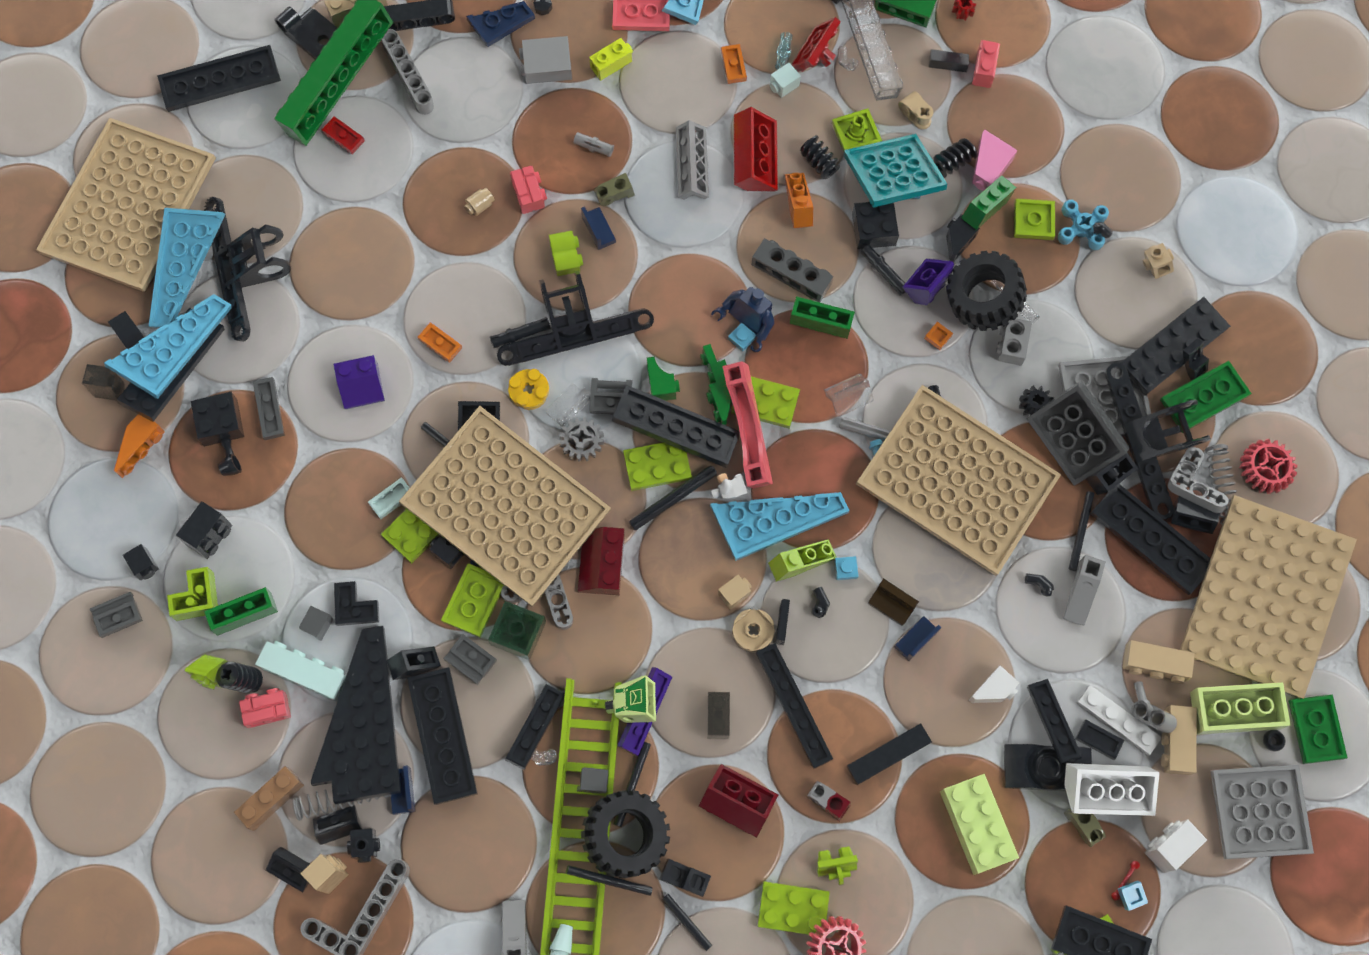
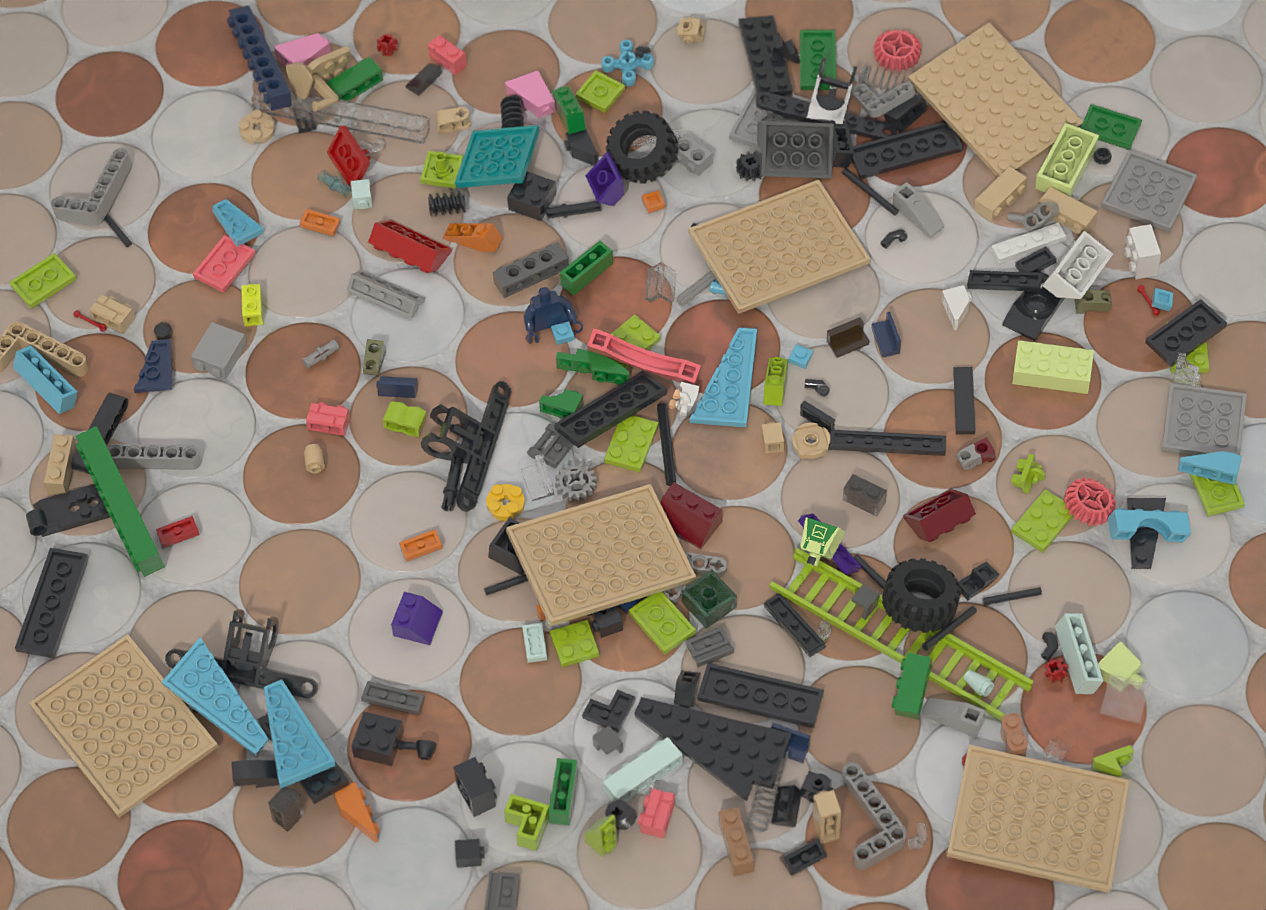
camera: 55 degrees left, 15 degrees down
(522, 878) = (912, 685): none -> green brick

